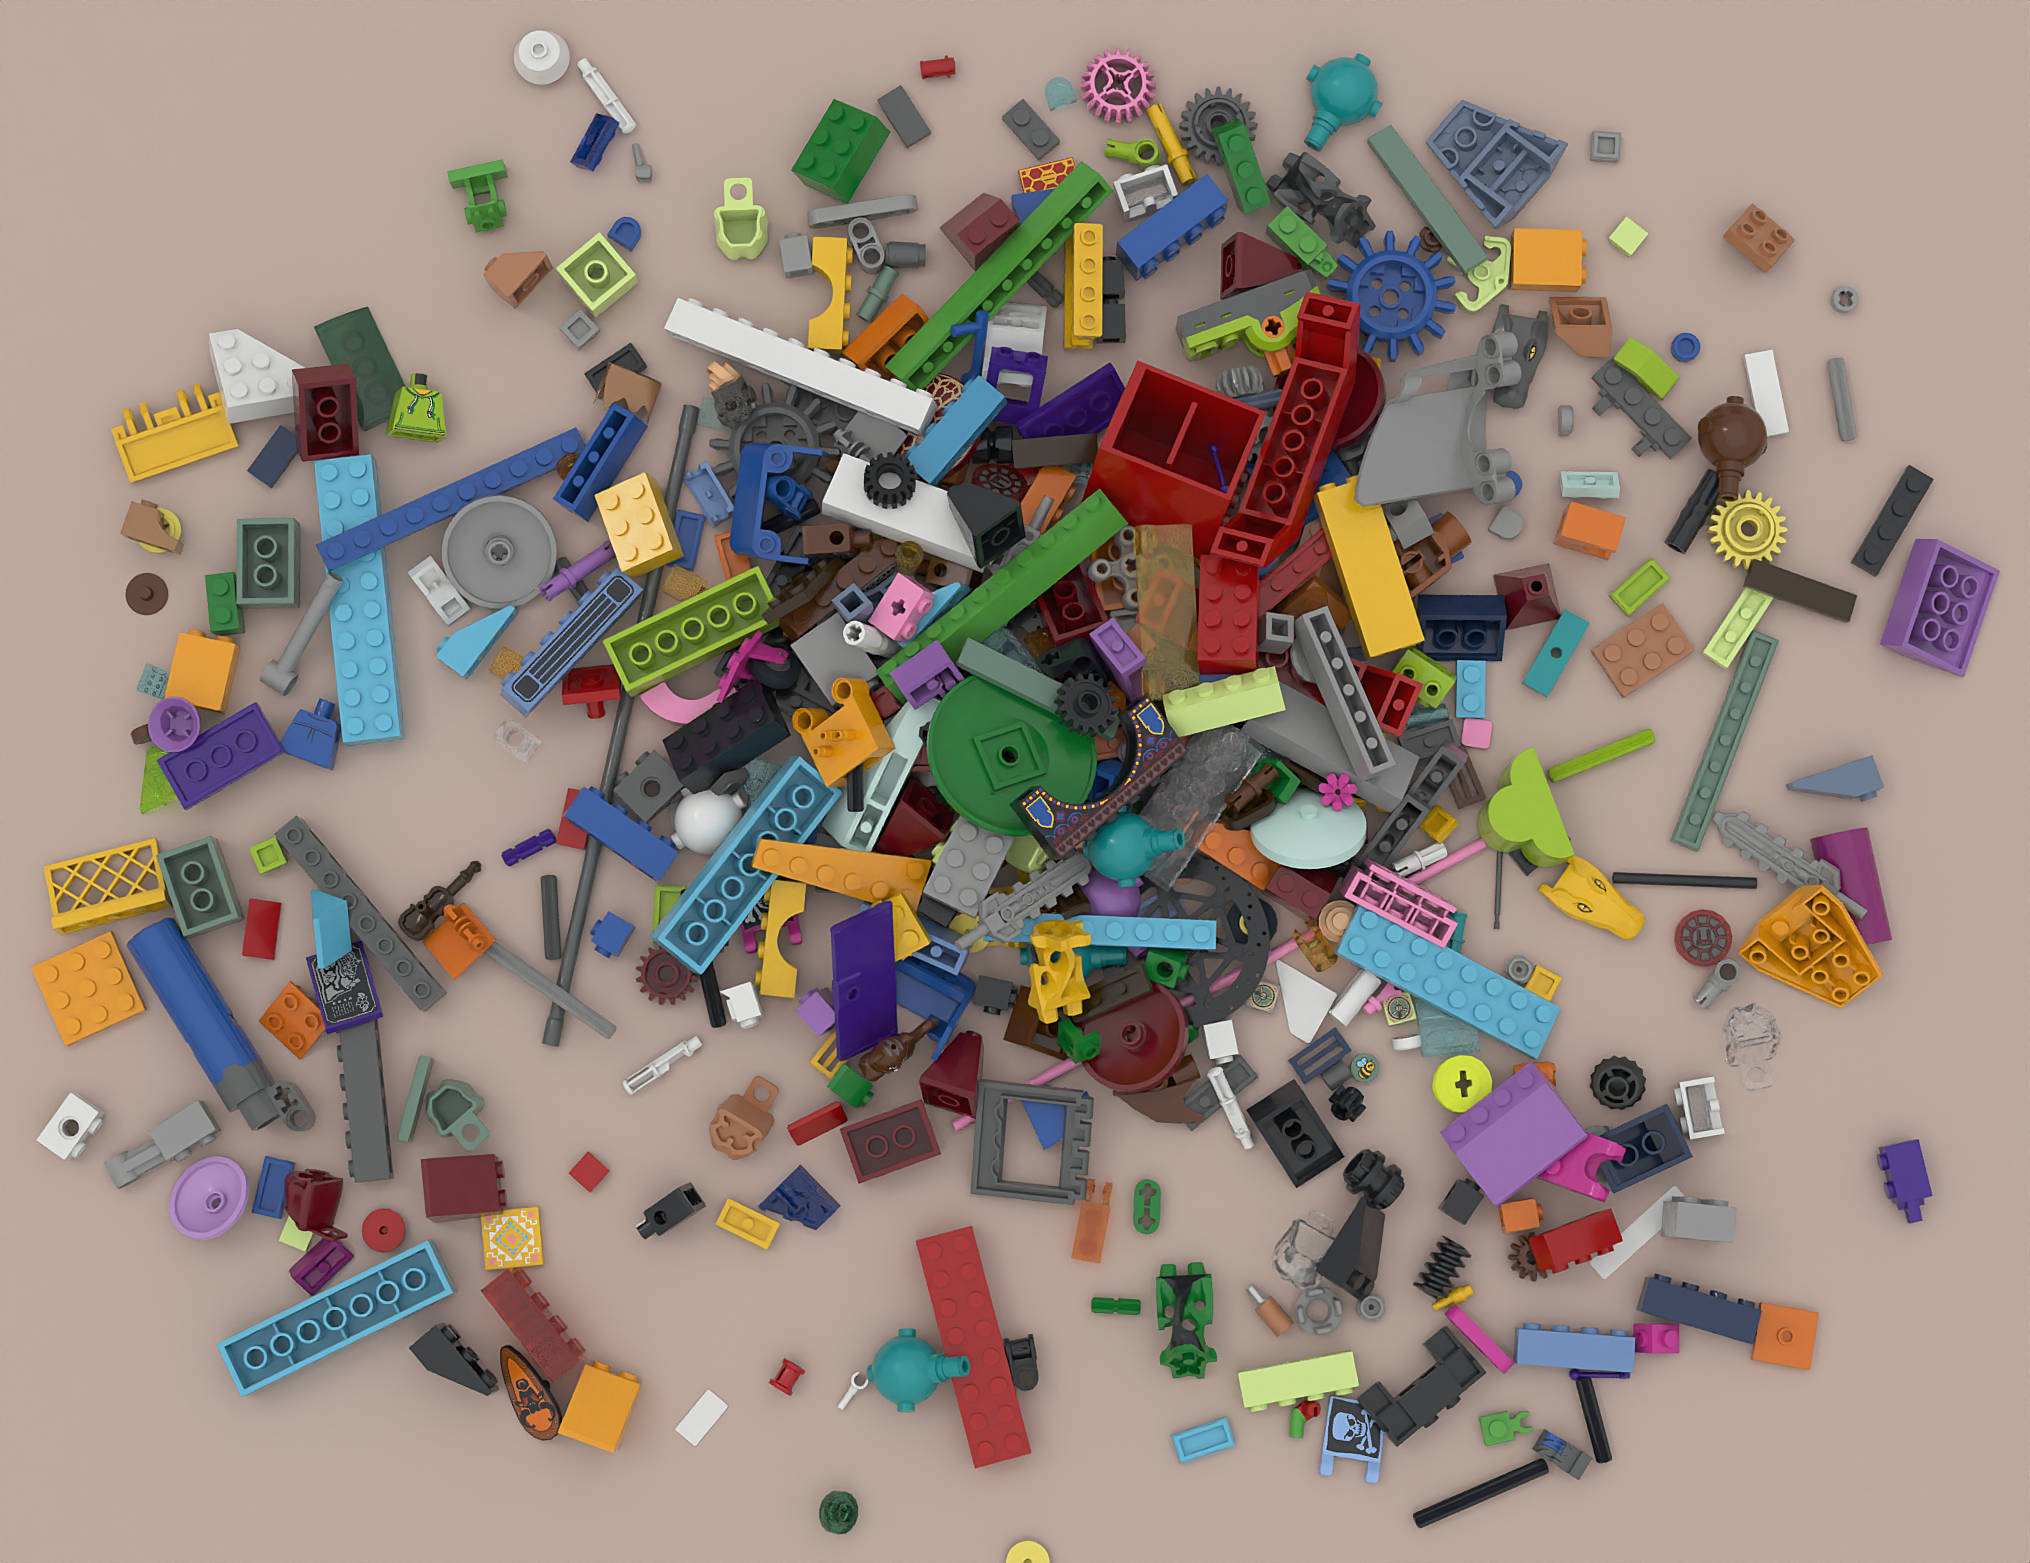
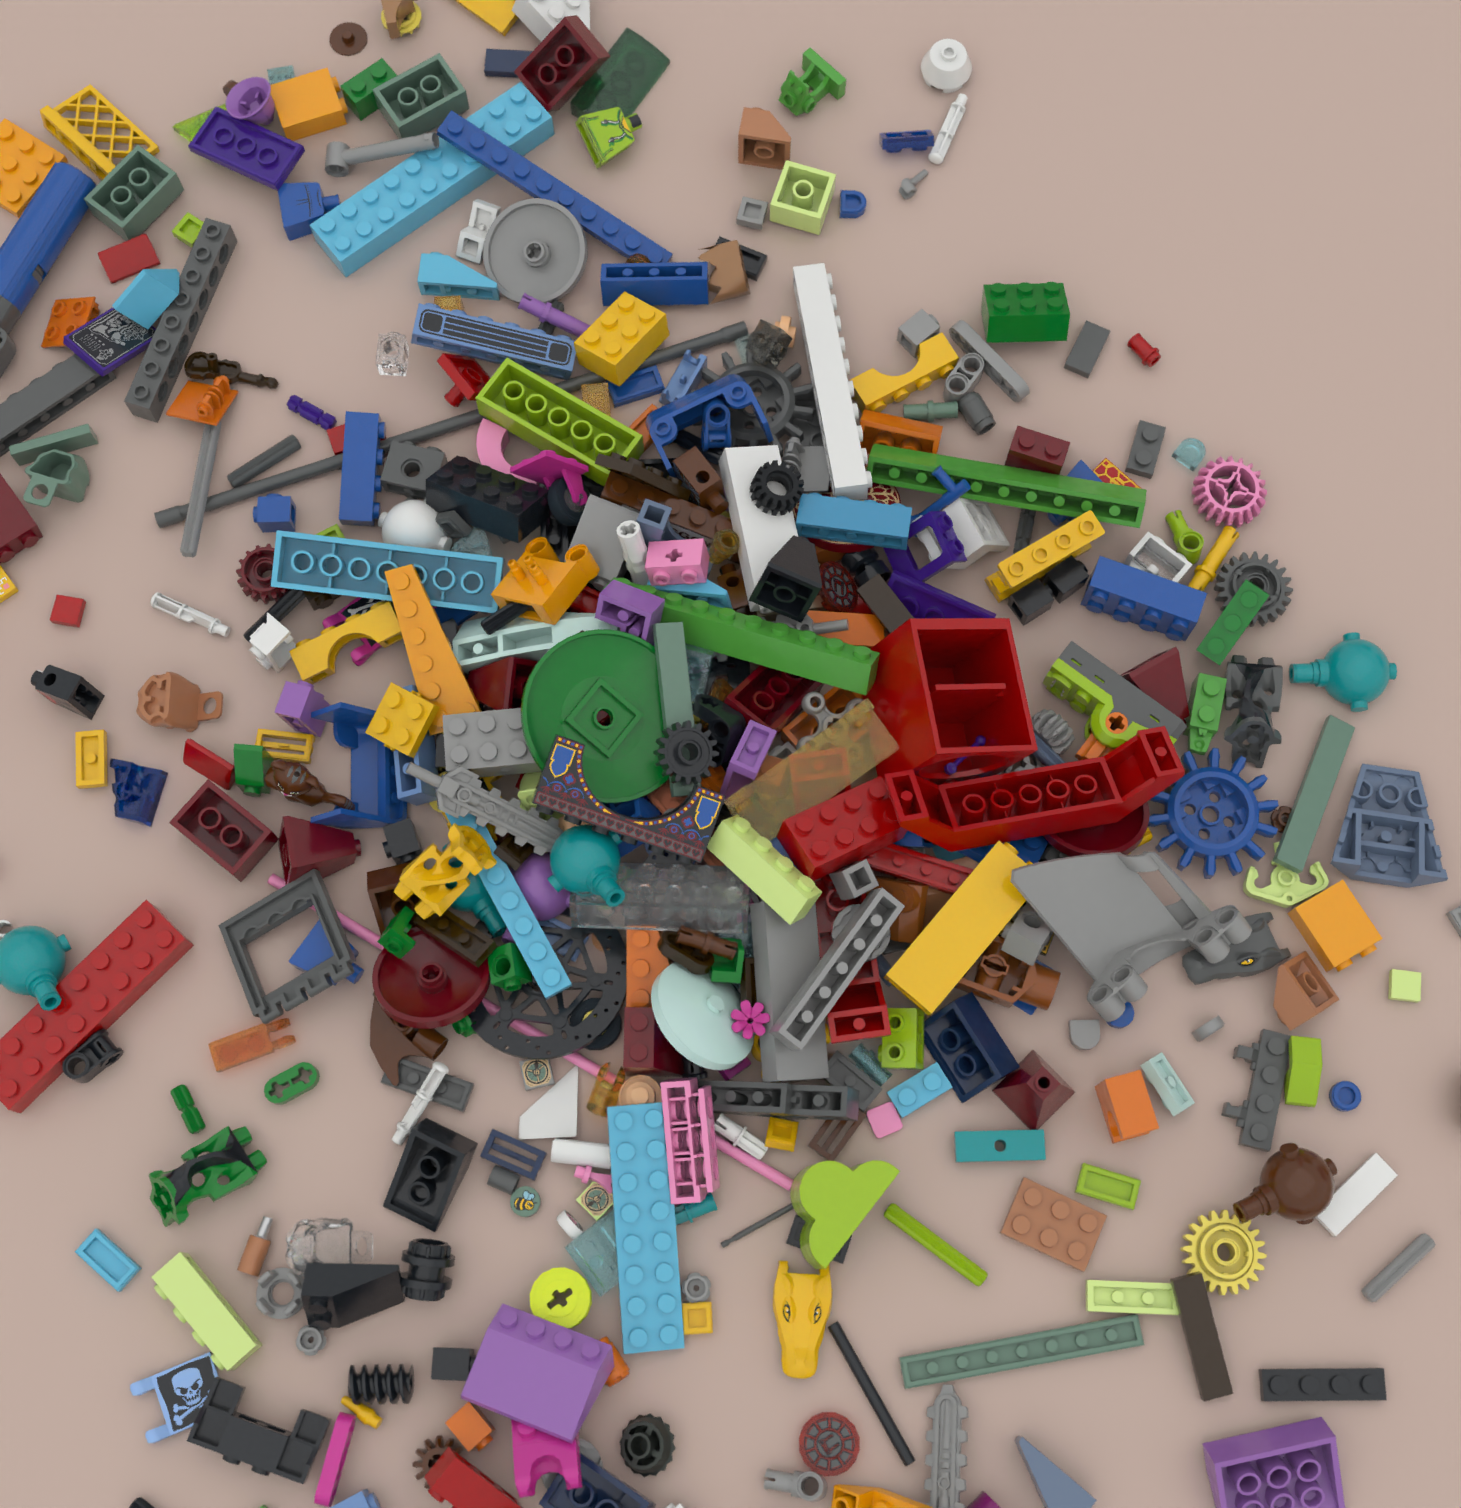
camera: 60 degrees right, 10 degrees down
(740, 224) = (914, 274): yellowish green piece -> none
(864, 980) = (343, 717): dark purple door -> none
(1220, 1041) = (473, 1058): white brick -> none
(1300, 1415) = (174, 1334): arm -> none
(1347, 1103) = (482, 1204): black gear -> none
(1694, 513) = (1204, 1194): black axle -> none

